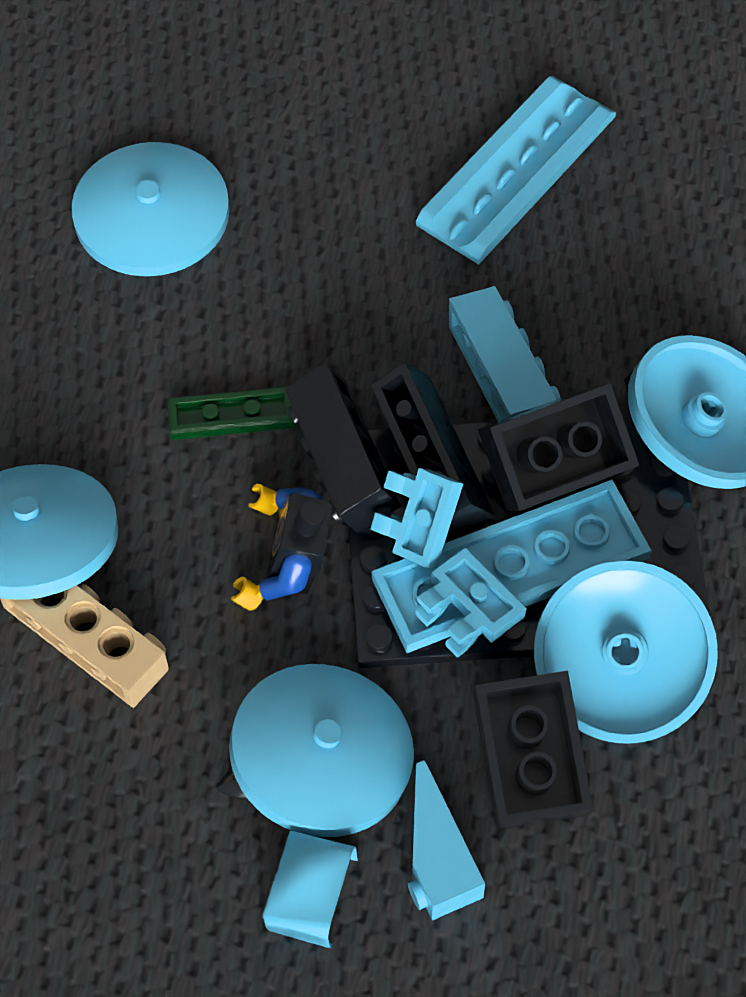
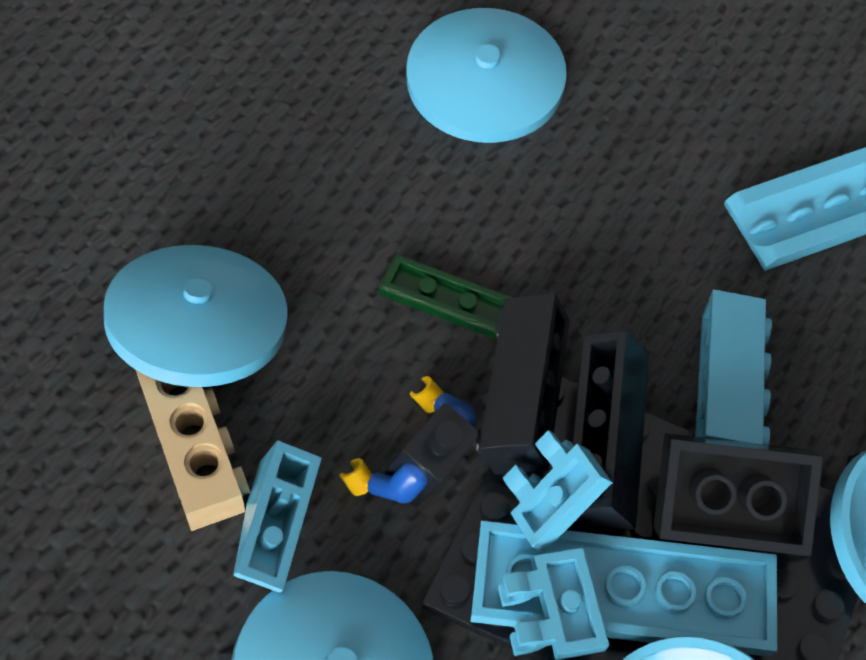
camera: 25 degrees right, 0 degrees up
(202, 650) = (275, 515): none -> medium azure slope

